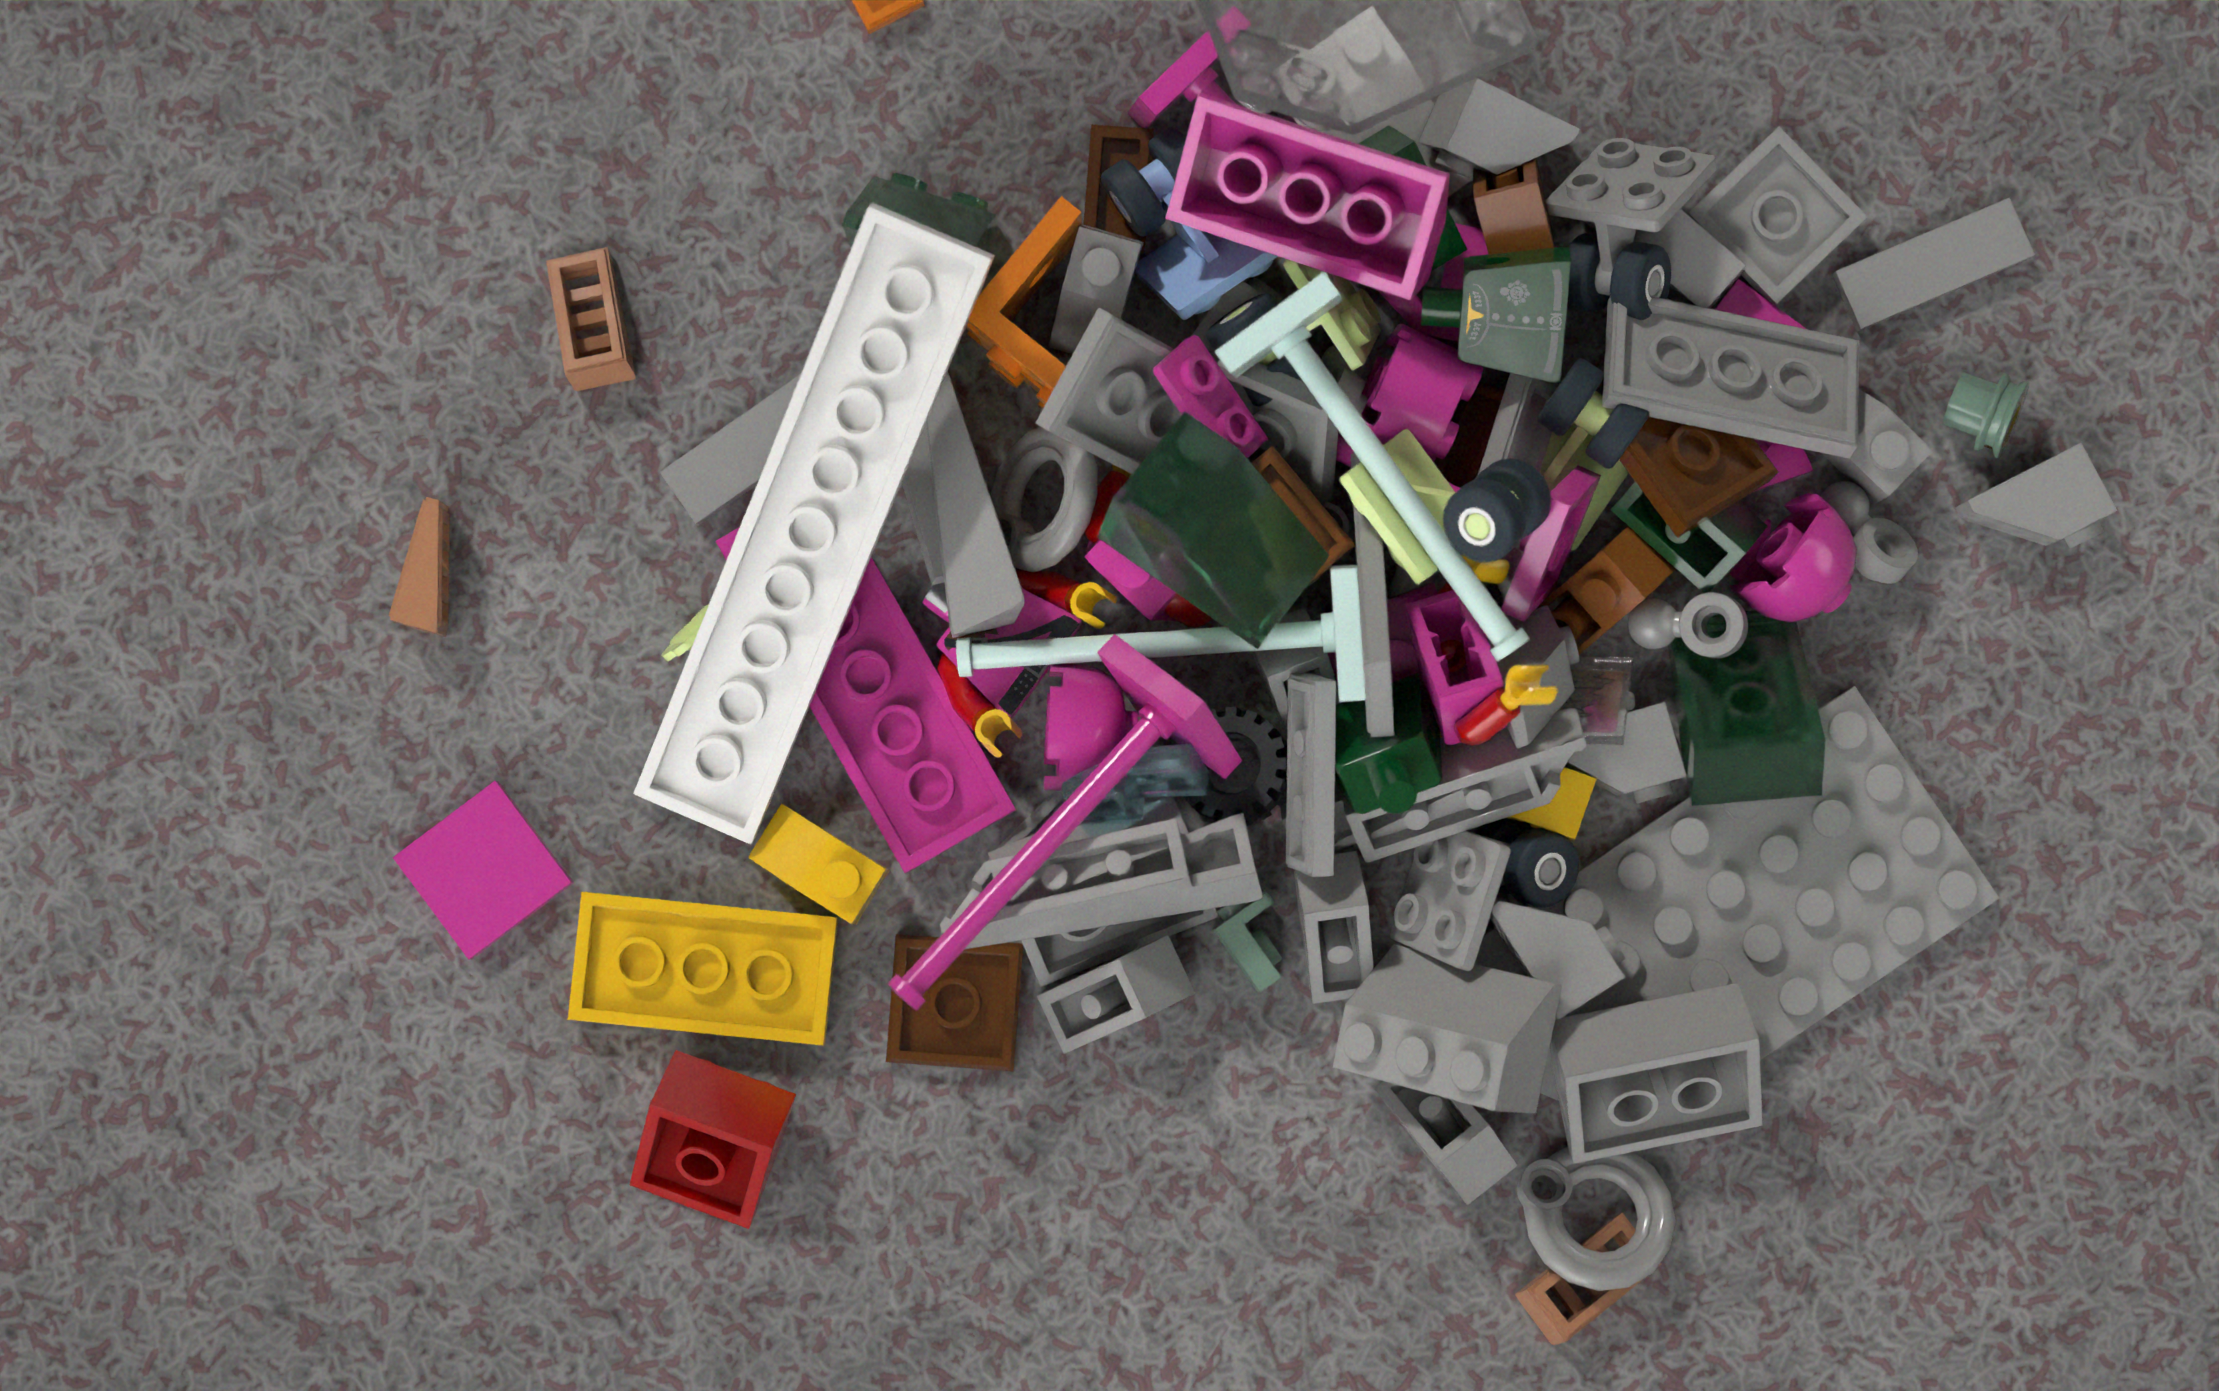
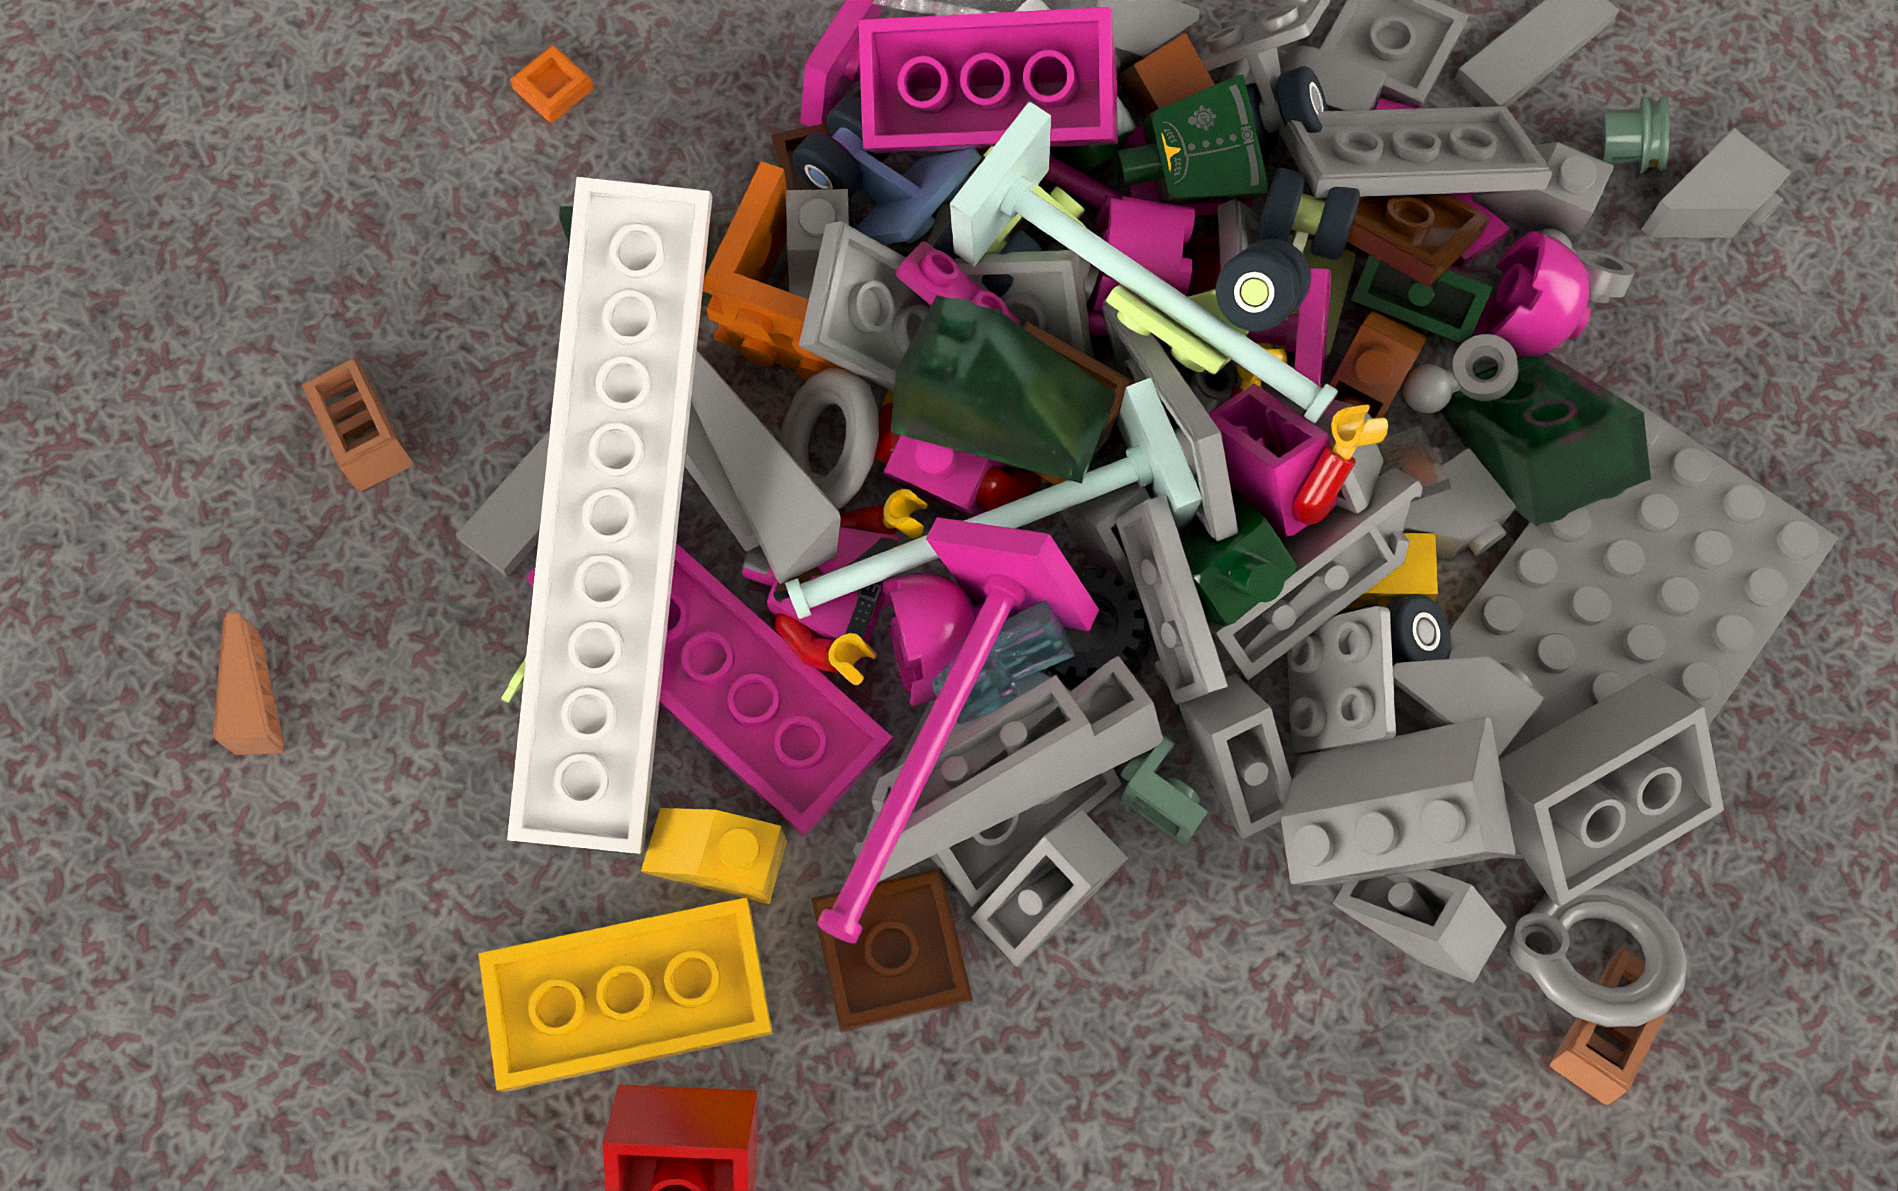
camera: 20 degrees left, 15 degrees down
(483, 870) = (373, 968): dark pink tile -> none

